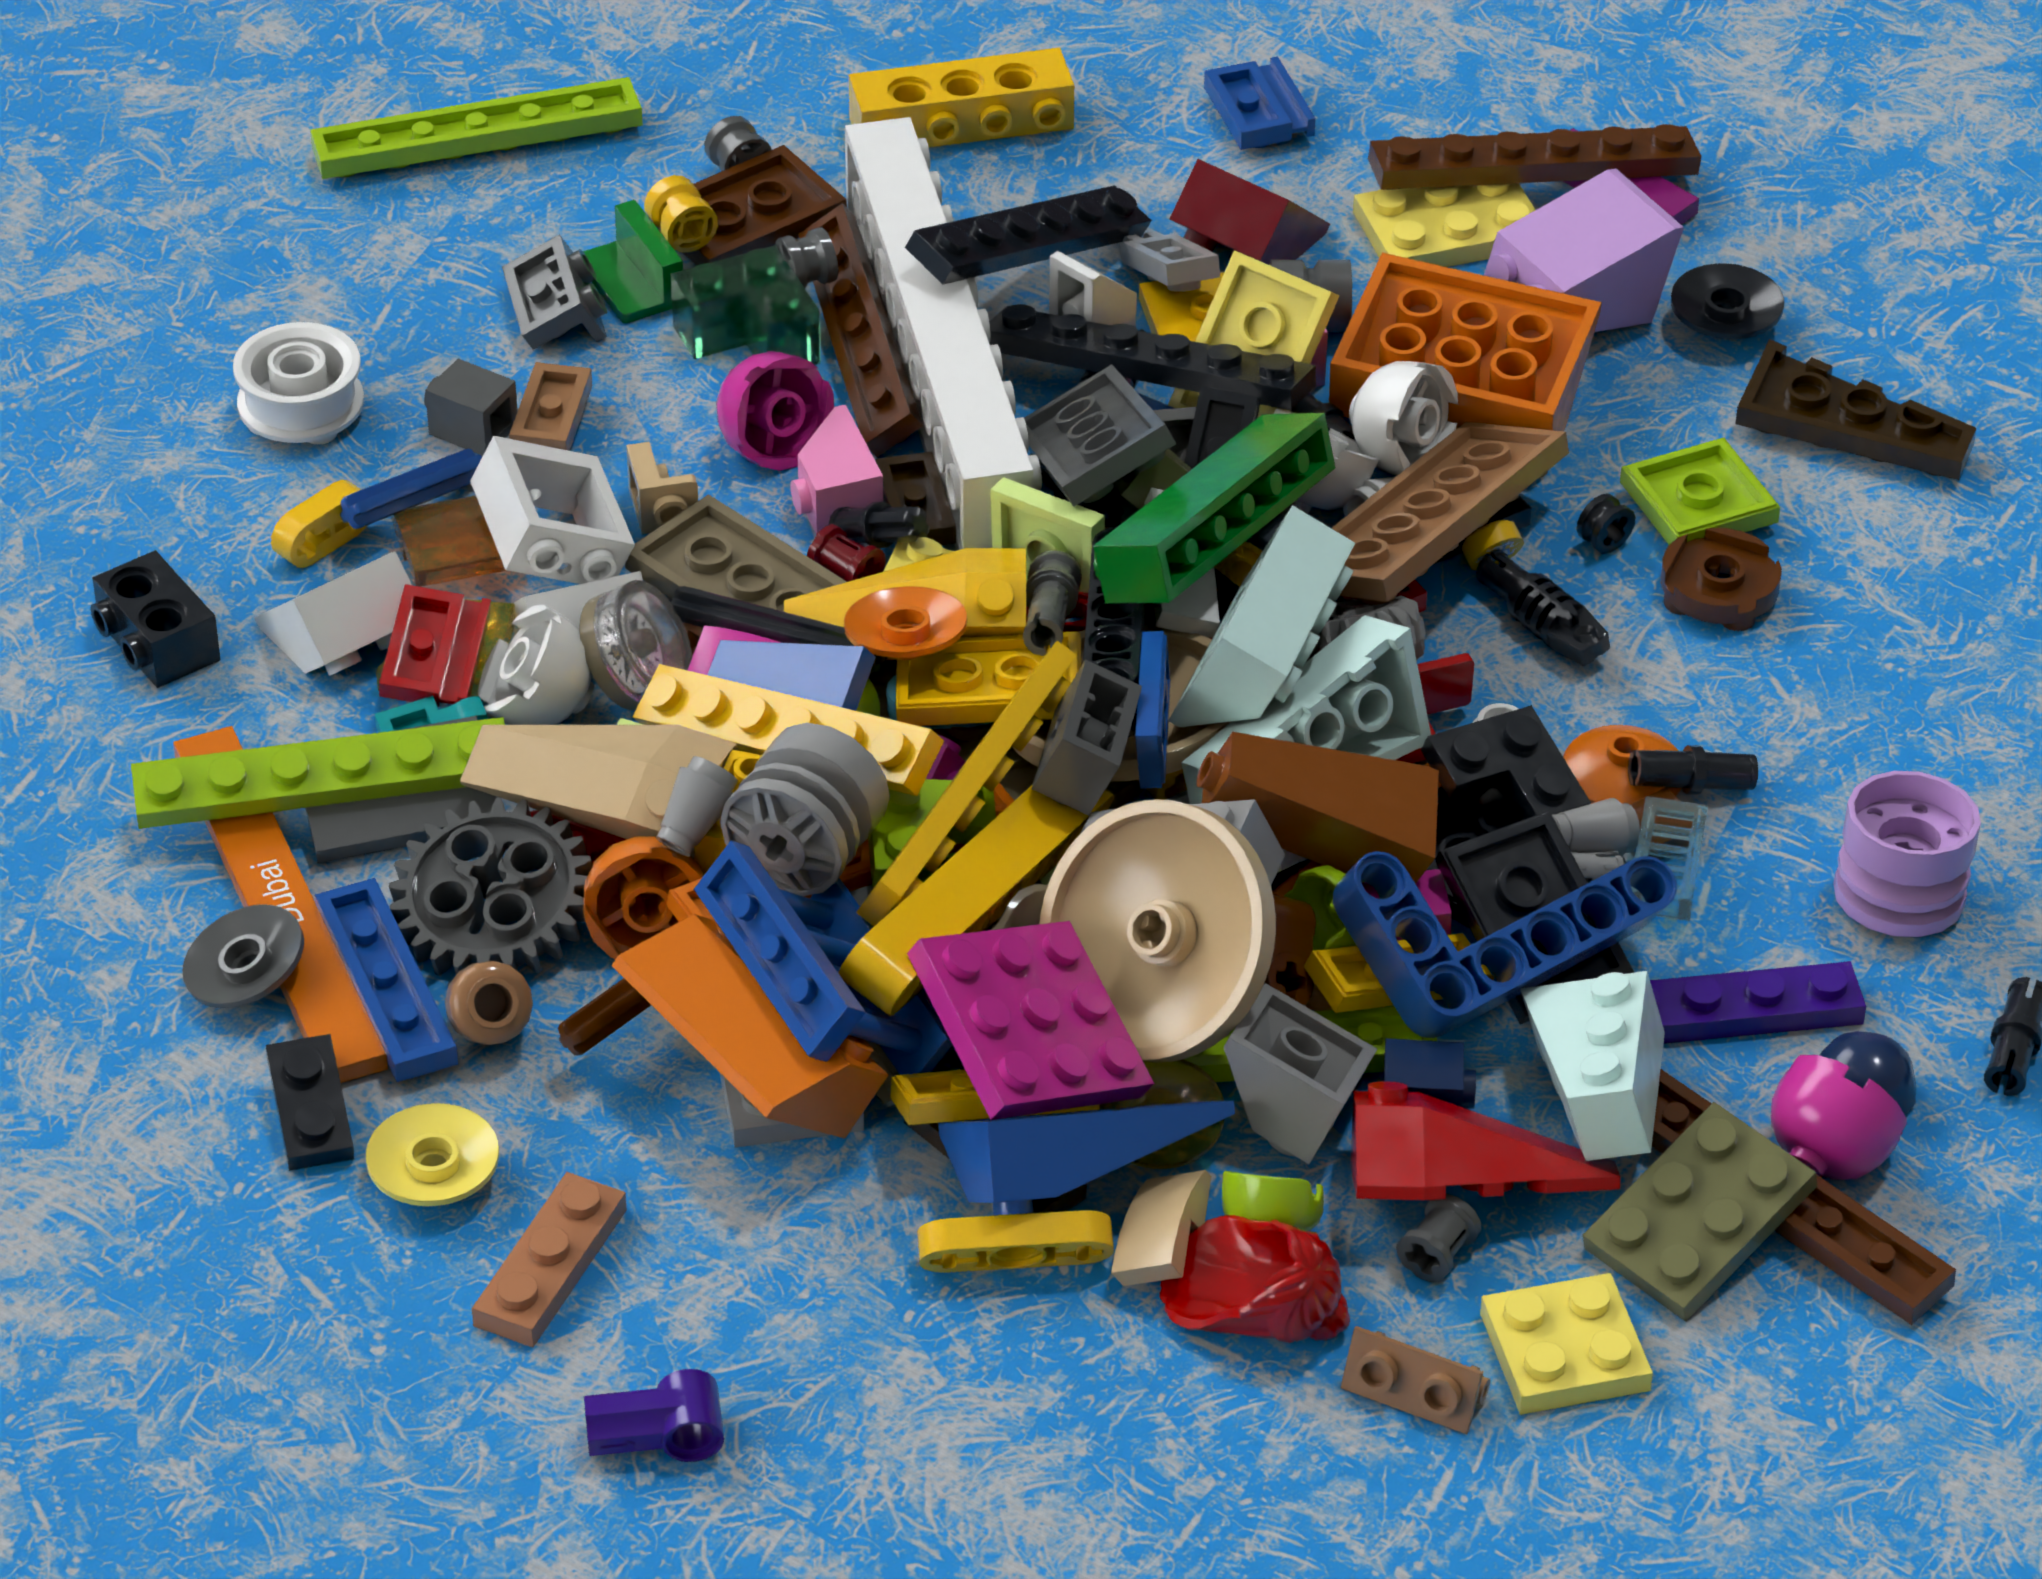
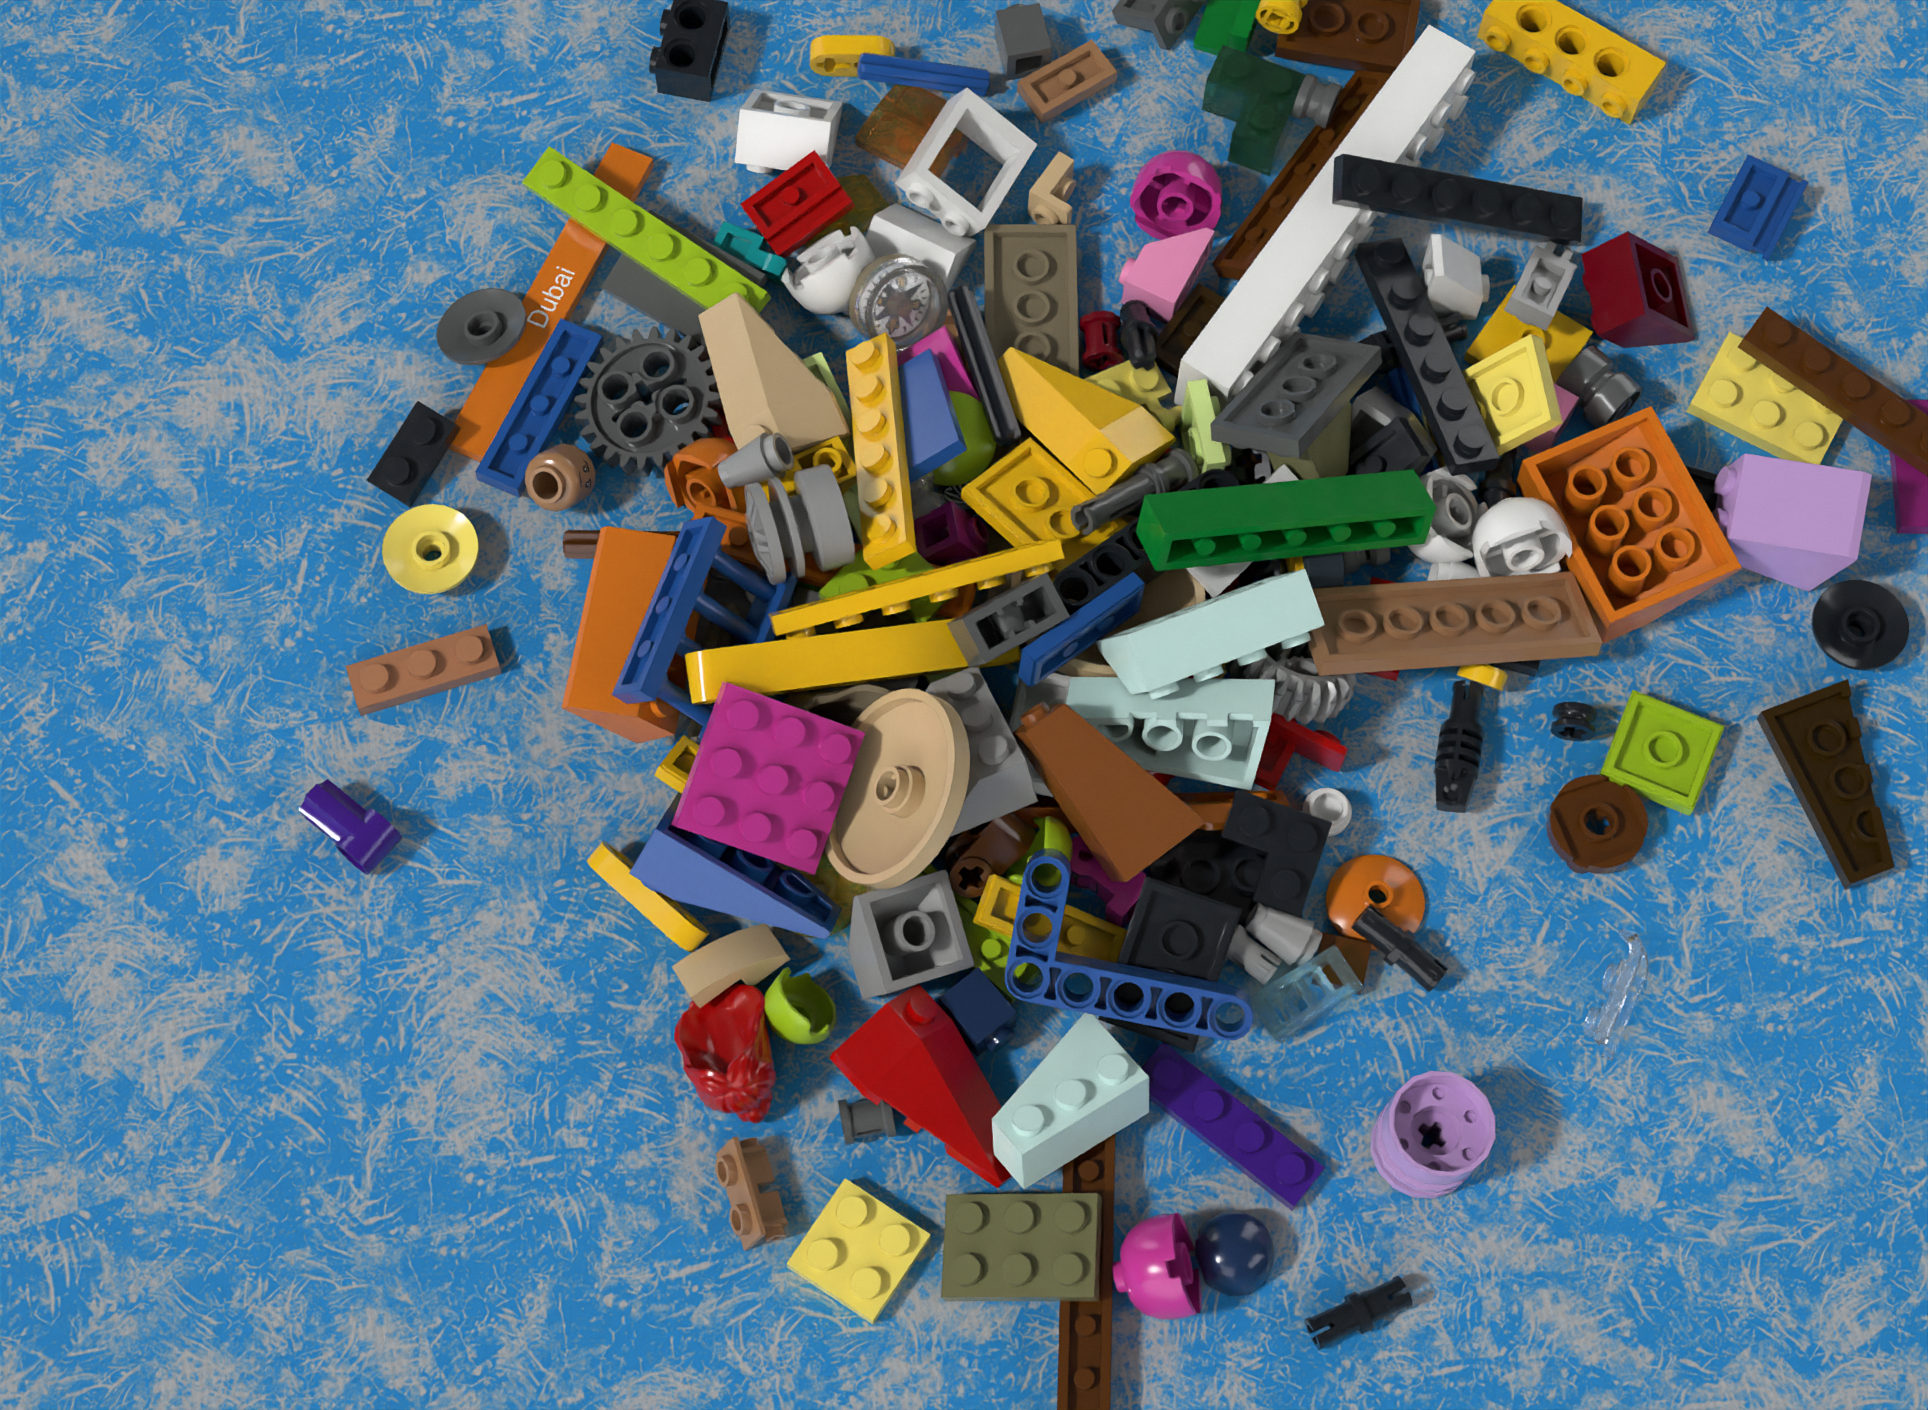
camera: 45 degrees right, 25 degrees up
(905, 622) = (1028, 420): orange dish -> none
(1893, 660) = (1624, 987): none -> clear piece

